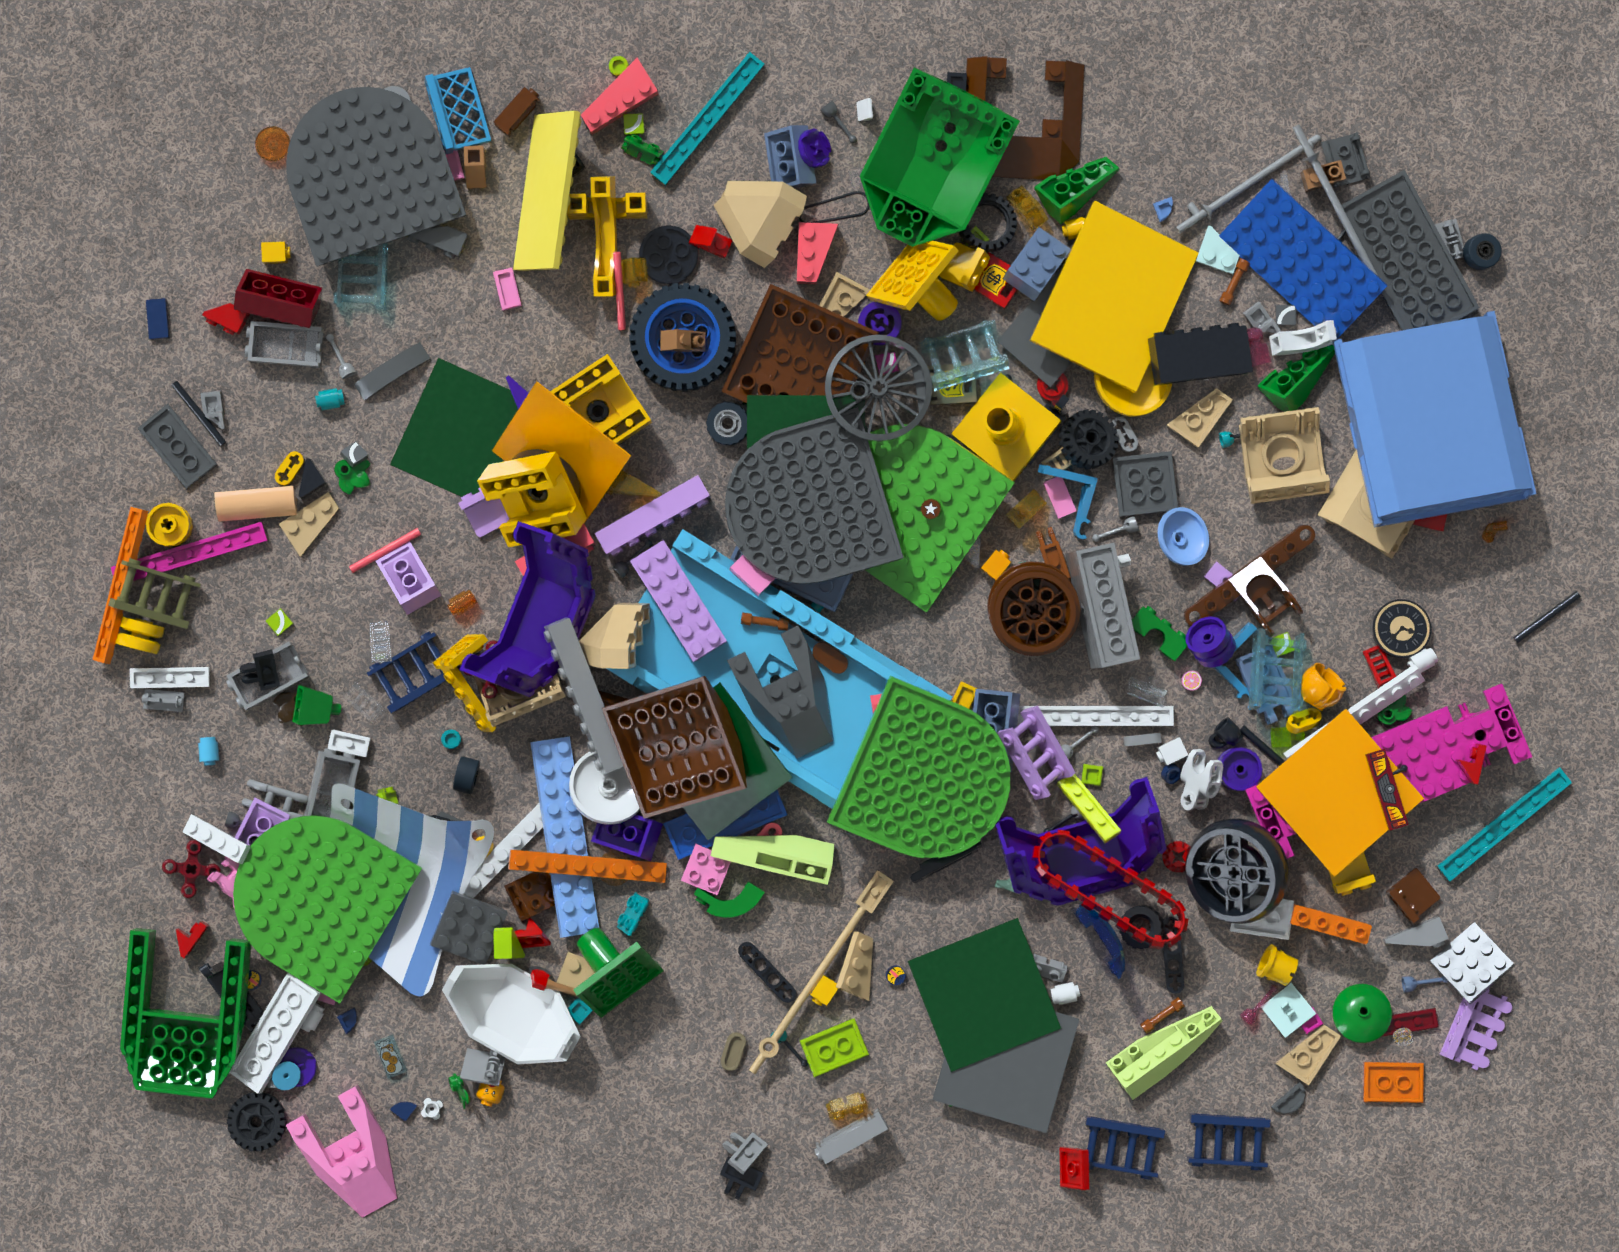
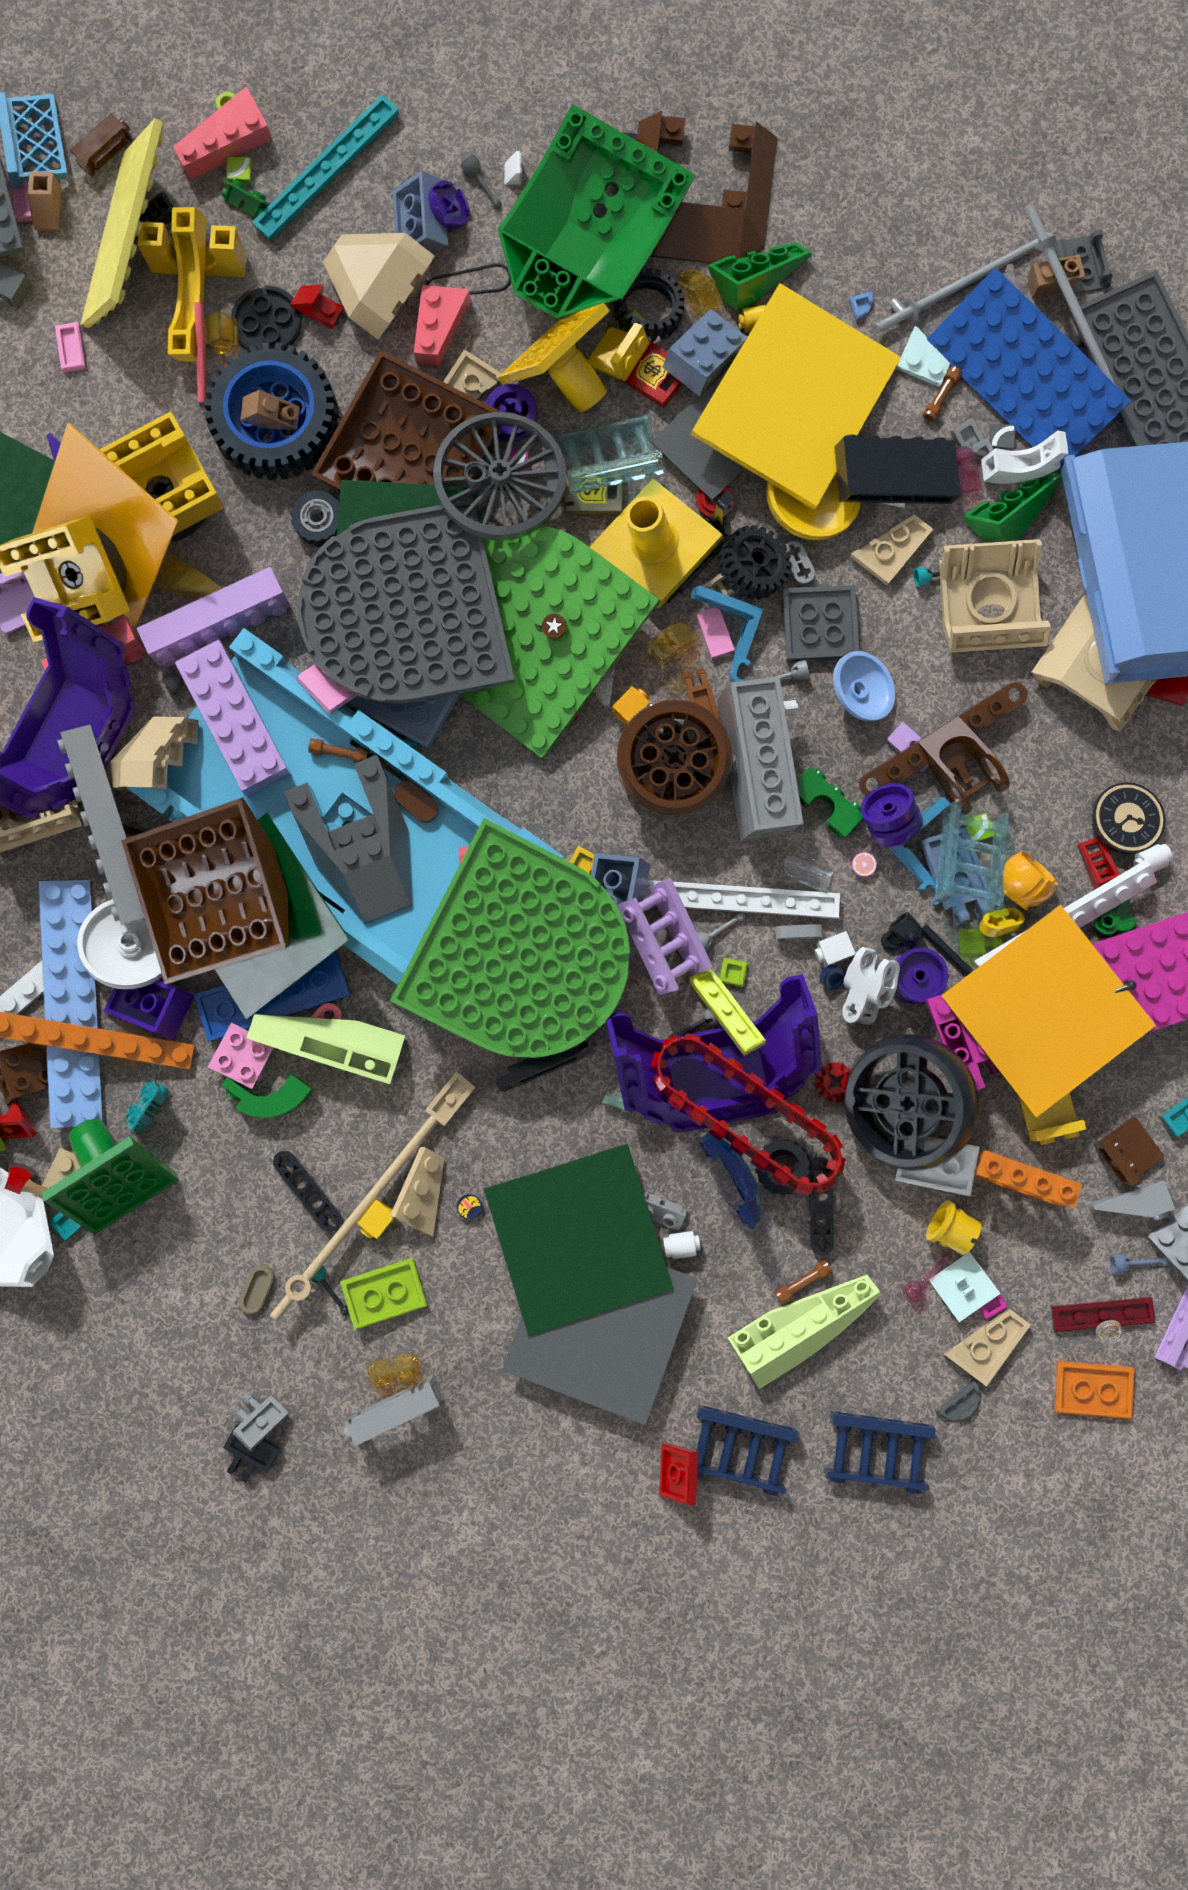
camera: 10 degrees right, 5 degrees down
(1352, 1023) = (1046, 1309): green dish -> none
(1386, 789) = (1109, 1010): tile -> none

